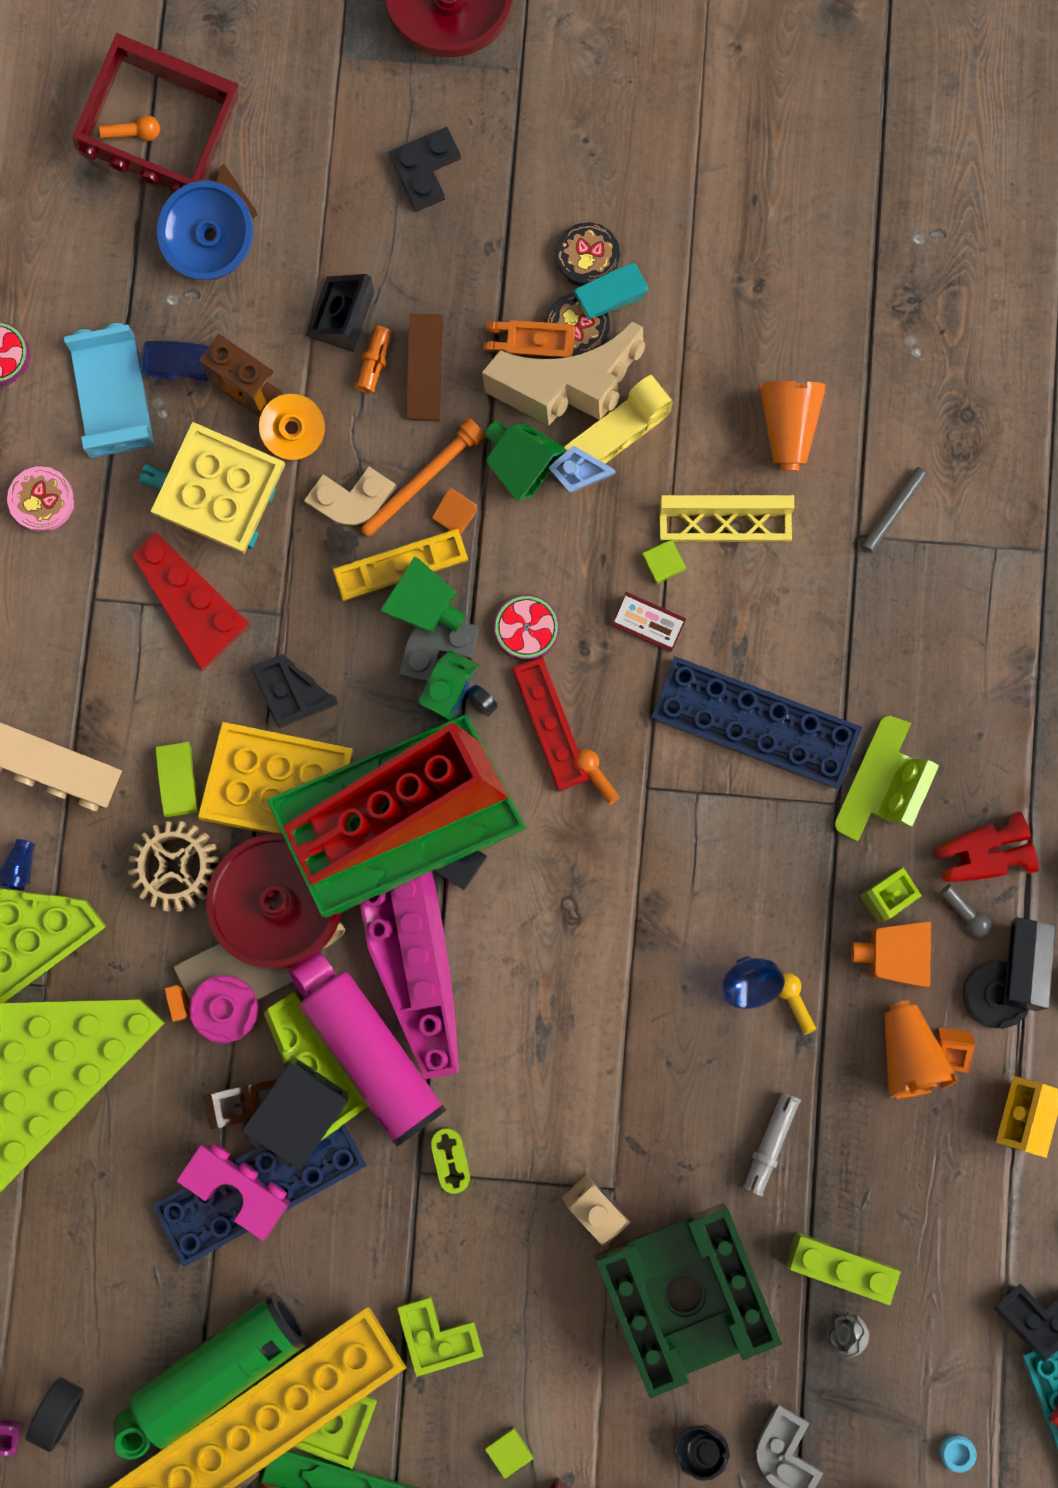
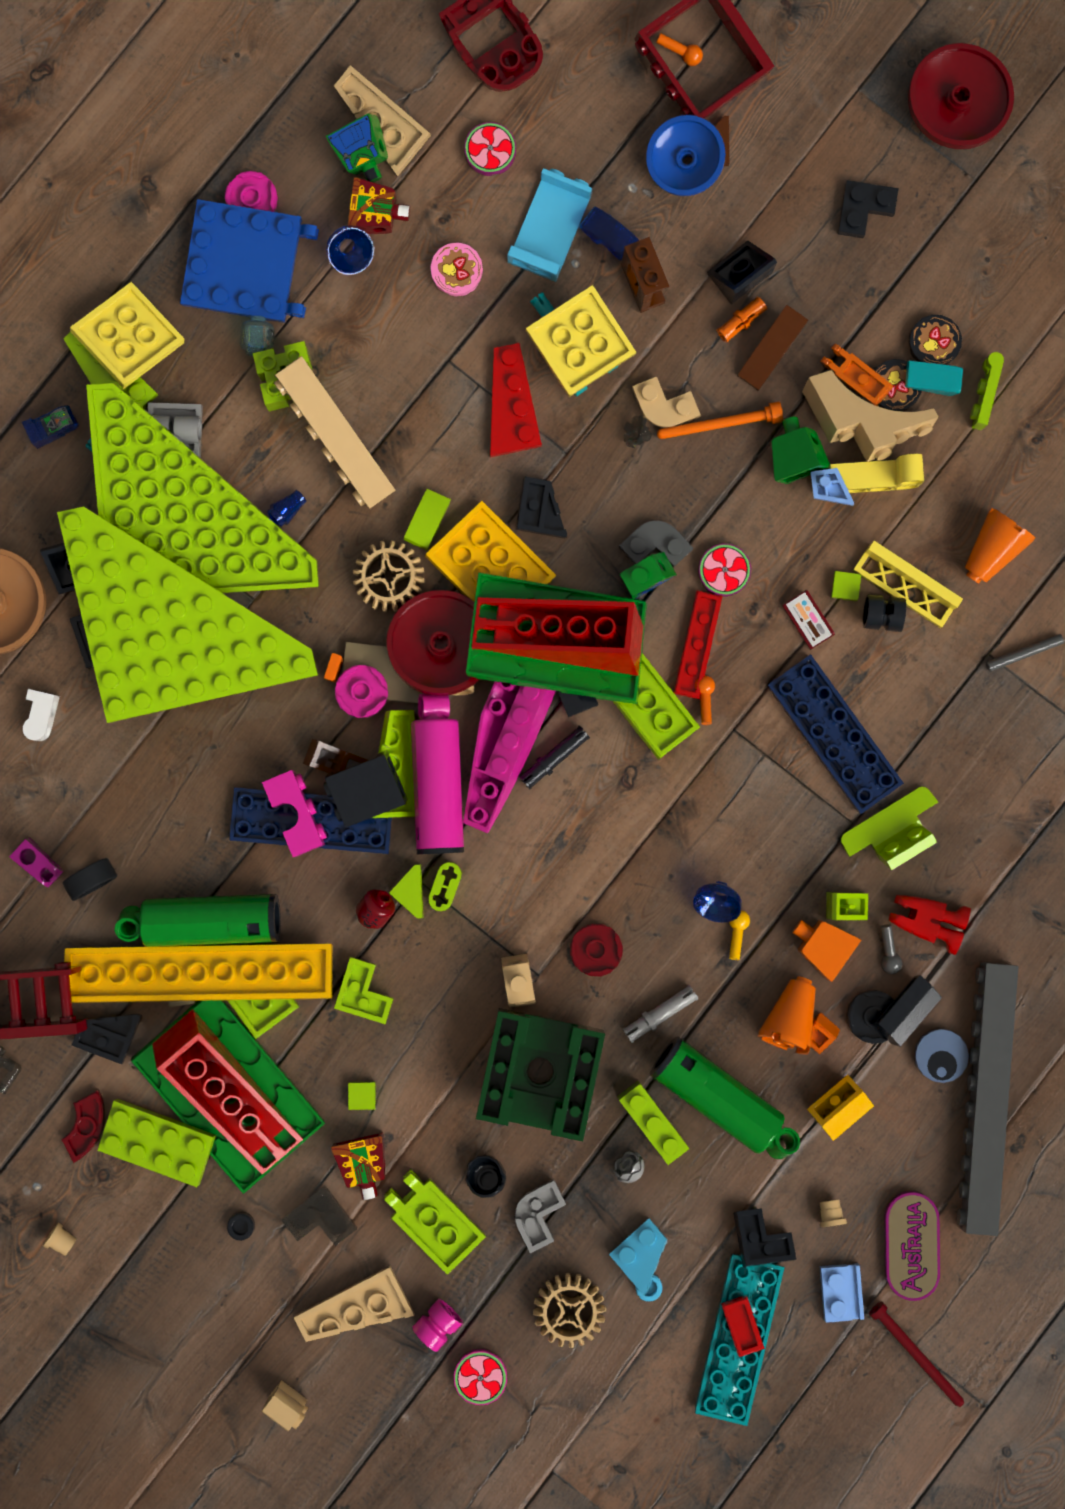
camera: 25 degrees right, 5 degrees up
(291, 409) = (670, 334): light orange dish -> none
(388, 567) = (668, 472): yellow plate -> none
(390, 1236) = (375, 909): none -> dark red head
(416, 1192) = (410, 892): none -> lime slope
(423, 600) = (667, 507): green torso -> none
(455, 511) = (728, 460): orange slope -> none
(477, 942) = (560, 752): none -> black pin
(481, 700) = (662, 599): black tile -> none
(556, 823) = (658, 714): none -> lime plate
(657, 1120) = (596, 949): none -> dark red tile
(673, 268) = (987, 389): none -> lime plate
(711, 566) = (875, 609): none -> black wheel
(901, 1192) = (723, 1100): none -> green piece
(925, 1423) = (640, 1254): none -> medium azure wing

